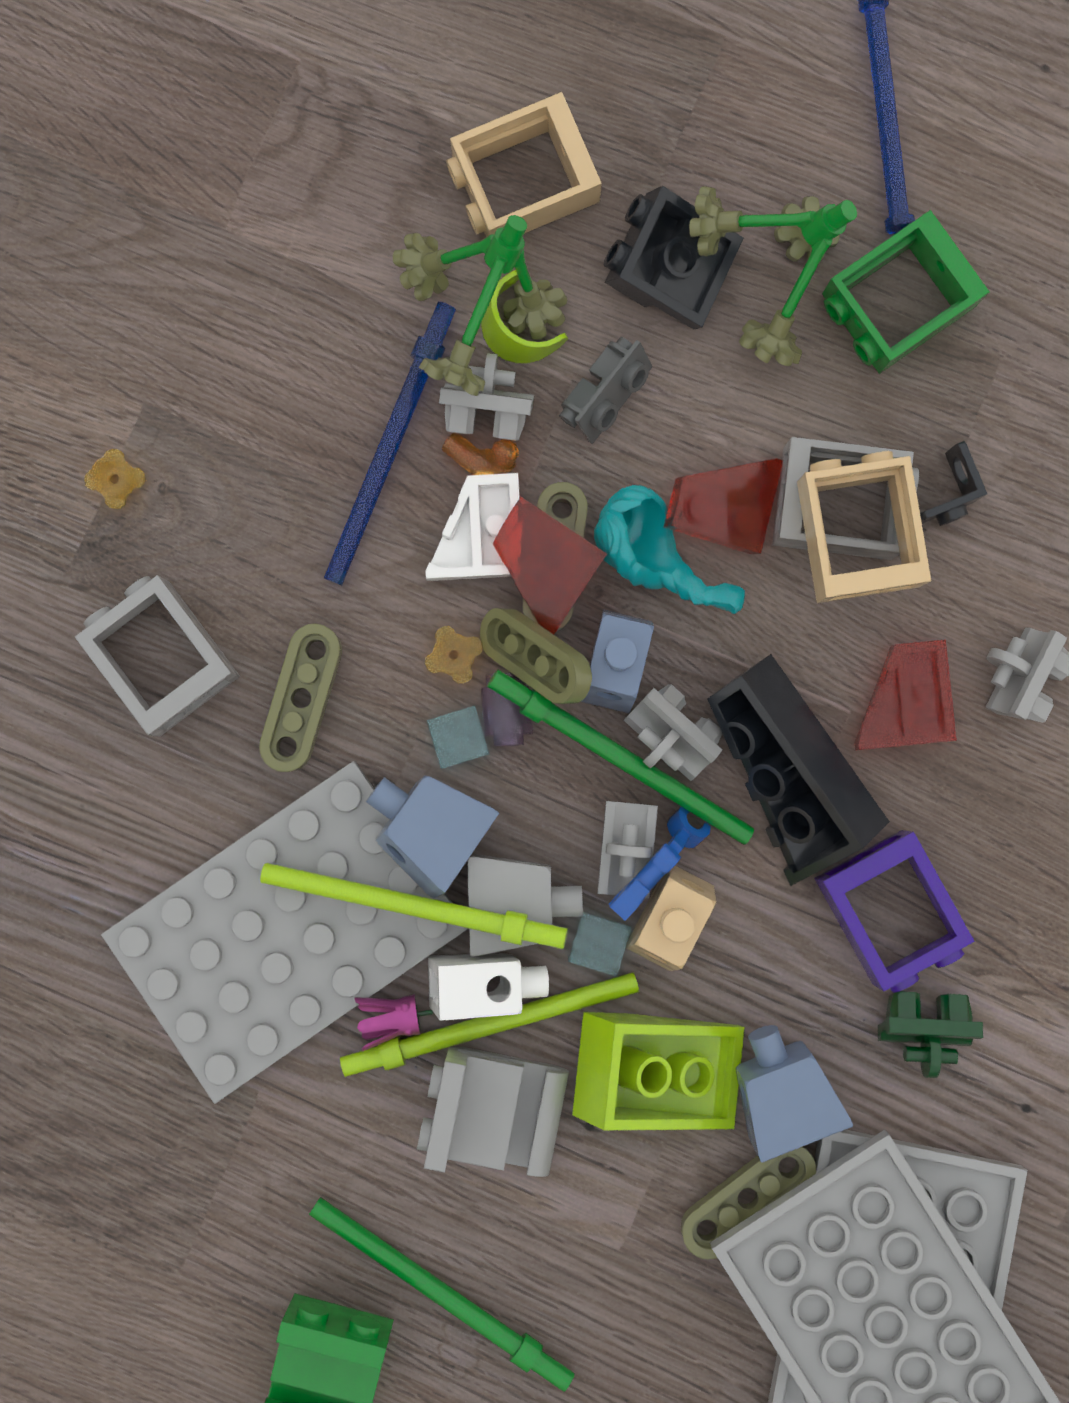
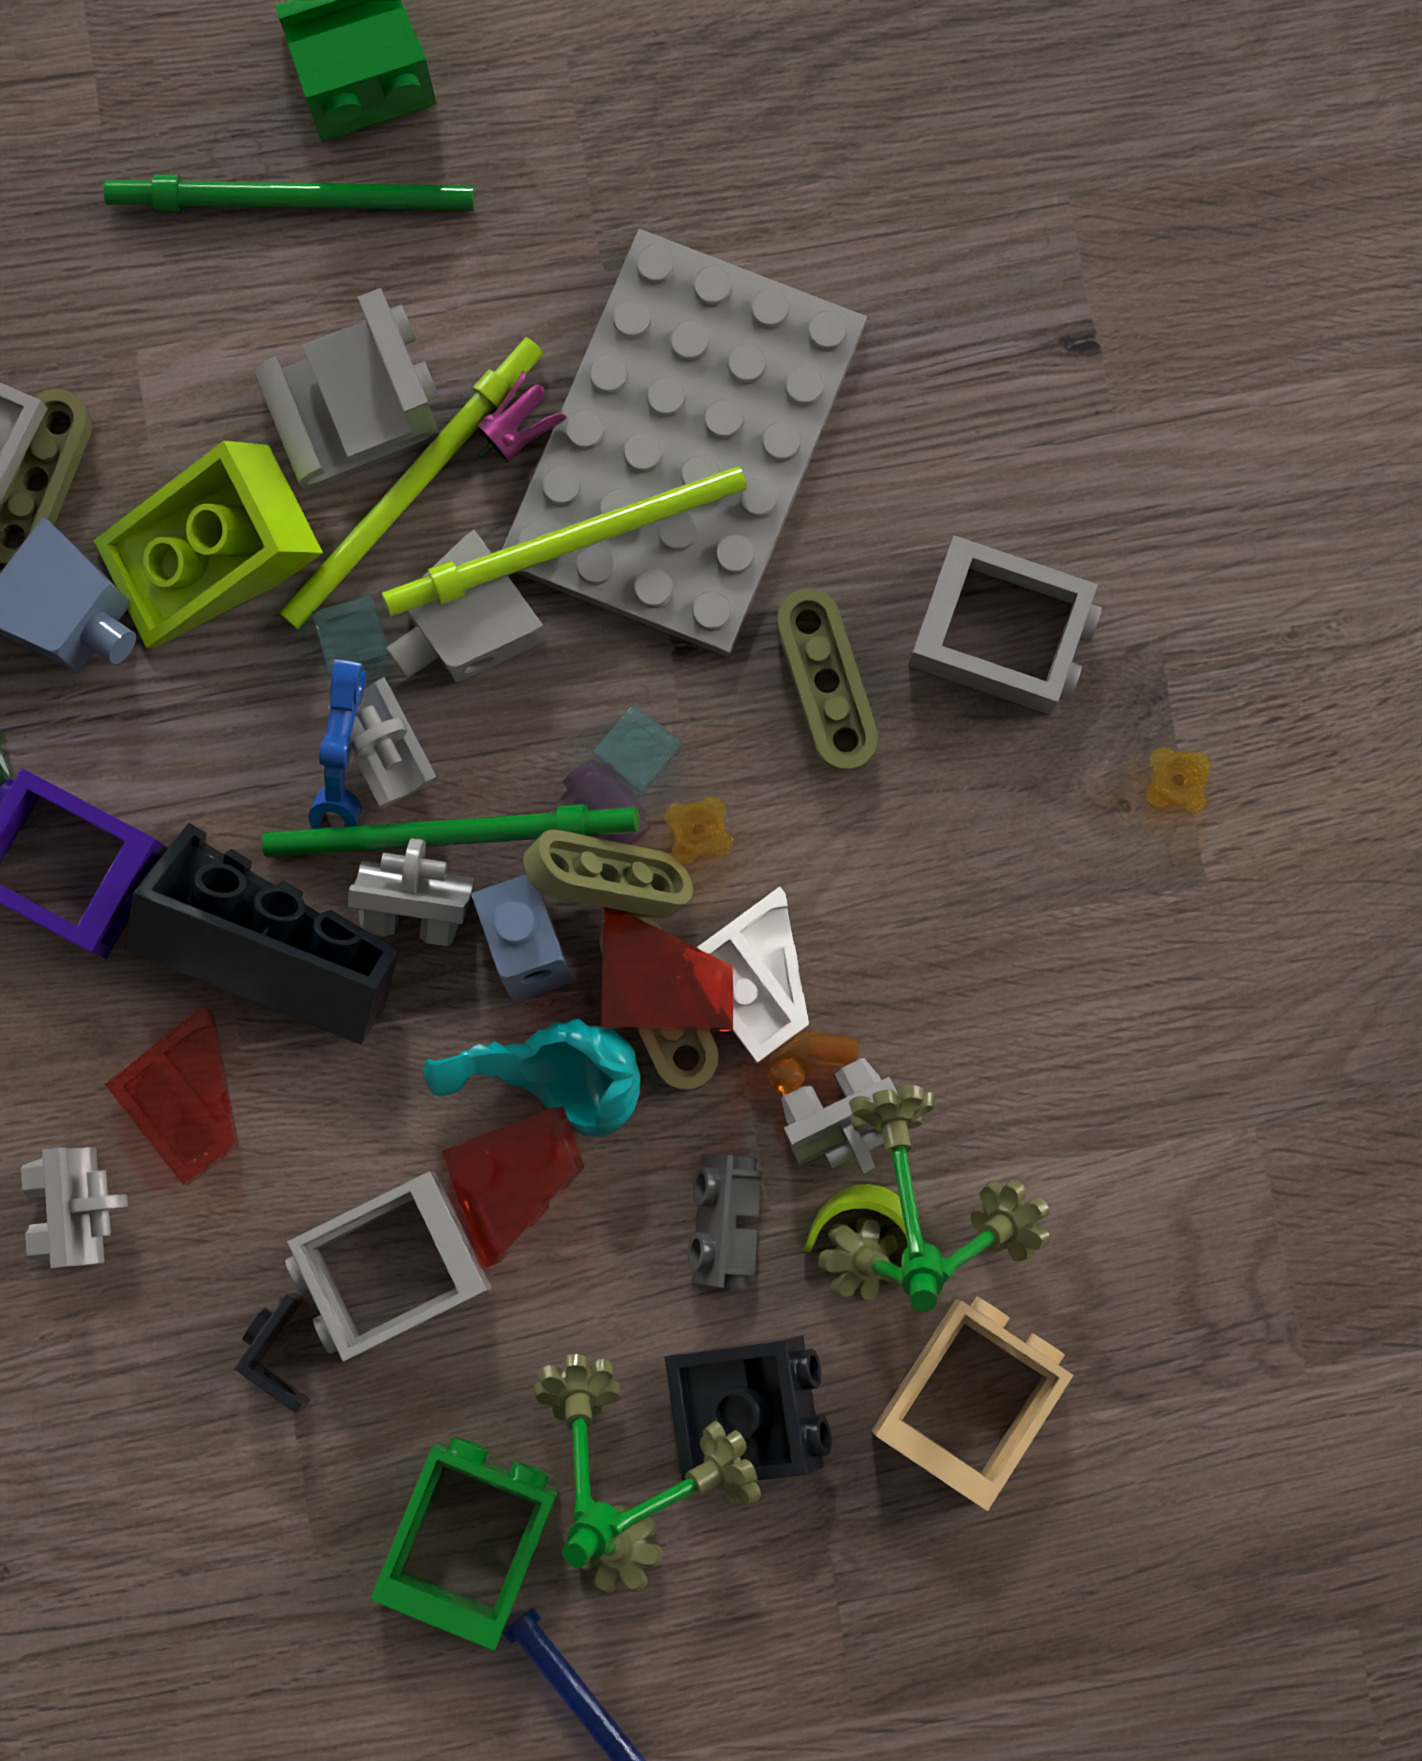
camera: 145 degrees right, 5 degrees down
(428, 347) = (942, 1131): clear blue bar -> none
(430, 830) = (599, 628): sand blue torso -> none
(461, 982) = (453, 491): white torso -> none
(673, 919) = (288, 703): tan torso -> none
(874, 468) = (294, 1184): tan window -> none

